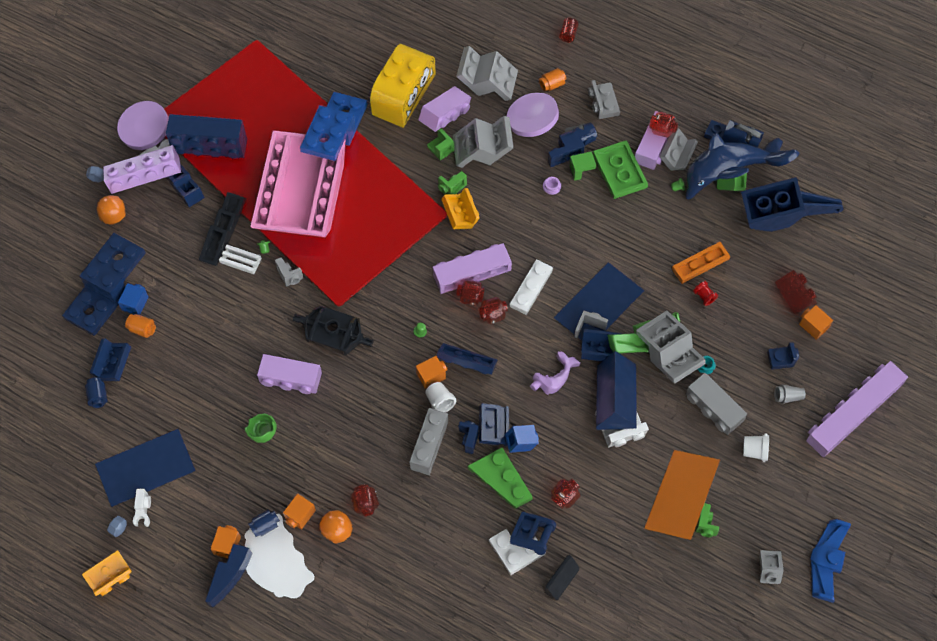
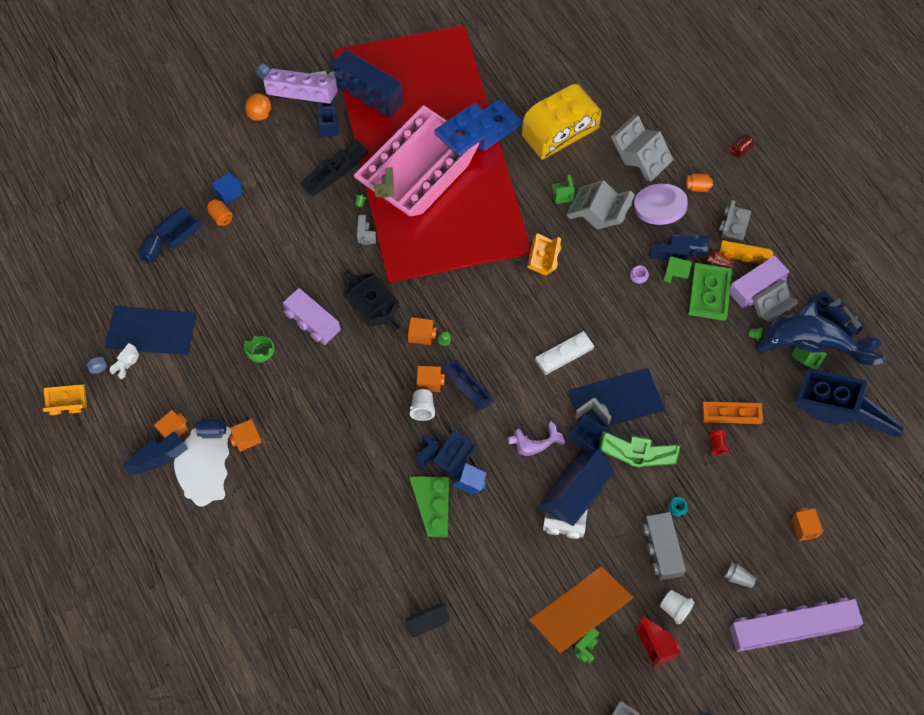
camera: 30 degrees right, 0 degrees up
(103, 284) = (211, 163): dark blue bracket -> none
(143, 125) = (323, 49): lavender piece -> none
(249, 255) = (326, 190): white tile -> none
(290, 220) = (387, 187): none -> olive bracket
(336, 526) = (268, 465): orange hair -> none
(364, 500) = (304, 456): clear red head -> none
(397, 334) = (421, 331): none -> orange brick
(429, 441) = (389, 437): light grey brick -> none
(445, 108) = (584, 159): lavender brick -> none
(454, 185) = (553, 229): bright green bracket -> none
(470, 292) = (507, 329): clear red head -> none
(475, 267) = (521, 309): lavender brick -> none
(493, 310) = (517, 355): clear red head -> none
(512, 556) = (403, 579): white plate -> none
(526, 529) = (423, 559): dark blue plate -> none
(565, 493) = (477, 548): clear red head -> none
(610, 138) = (716, 258): none -> clear red cone
(628, 121) = (745, 252): none -> light orange plate
(663, 124) = (772, 270): clear red head -> none
(670, 346) = (653, 472): light grey bracket -> none
(759, 485) = (657, 642): none -> red slope
(783, 357) = (755, 539): dark blue bracket -> none
(796, 291) = (806, 486): clear red bracket -> none

